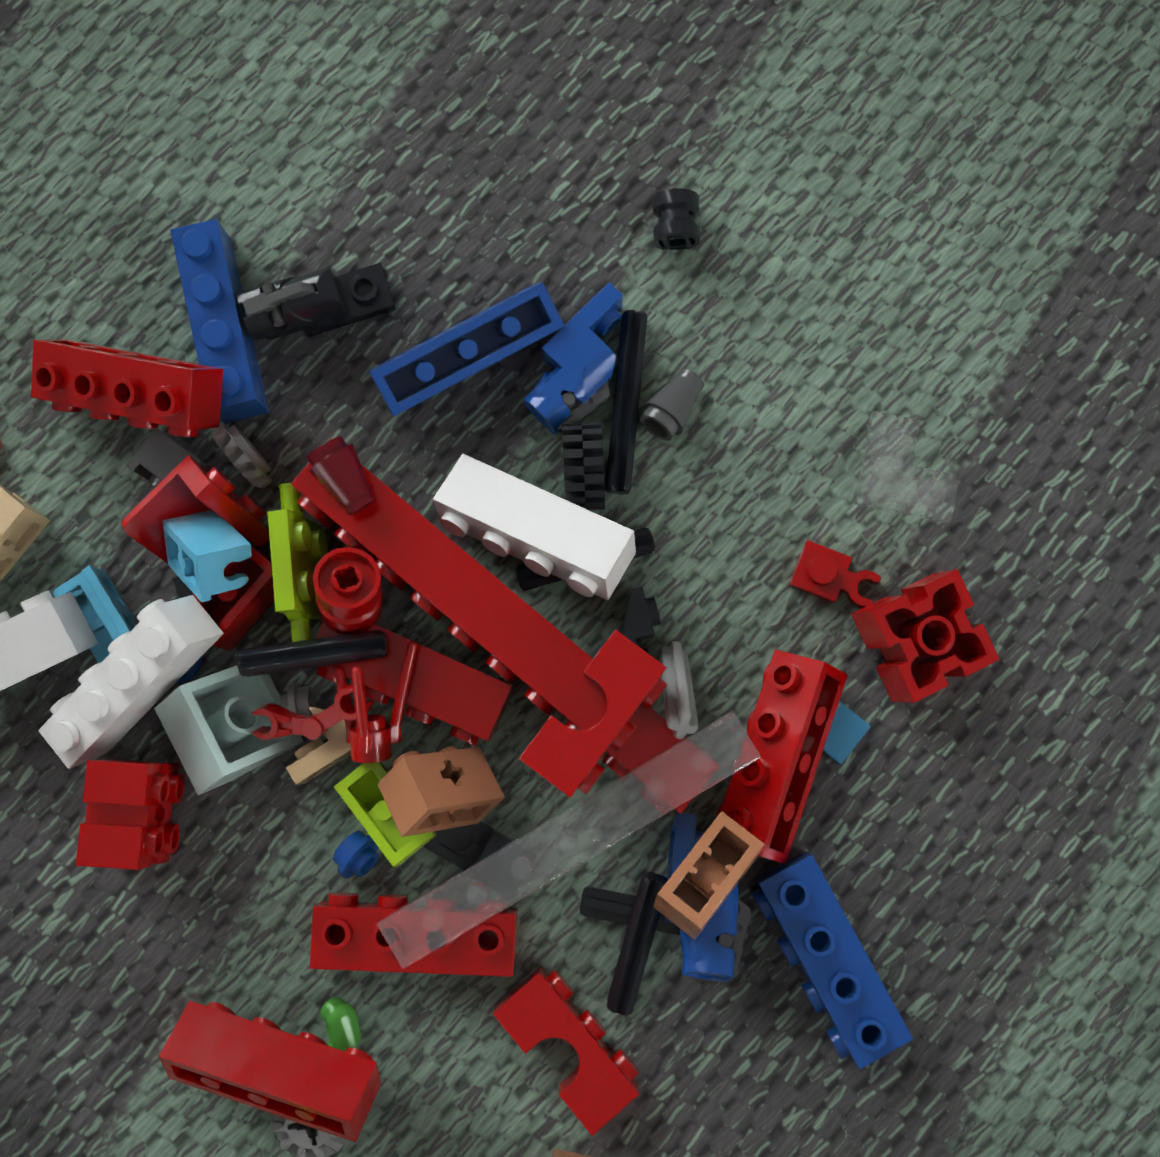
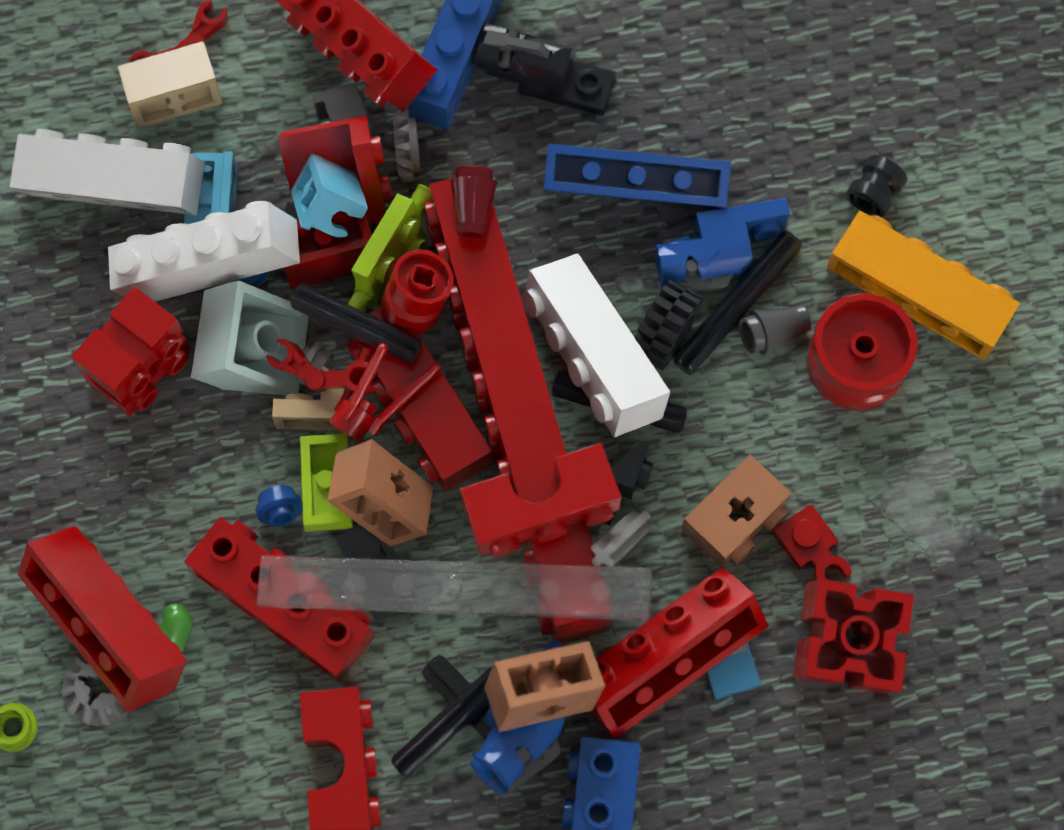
camera: 30 degrees right, 10 degrees down
(749, 562) = (745, 487): none -> nougat brick
(775, 281) = (926, 286): none -> light orange brick
(792, 373) = (868, 325): none -> red wheel

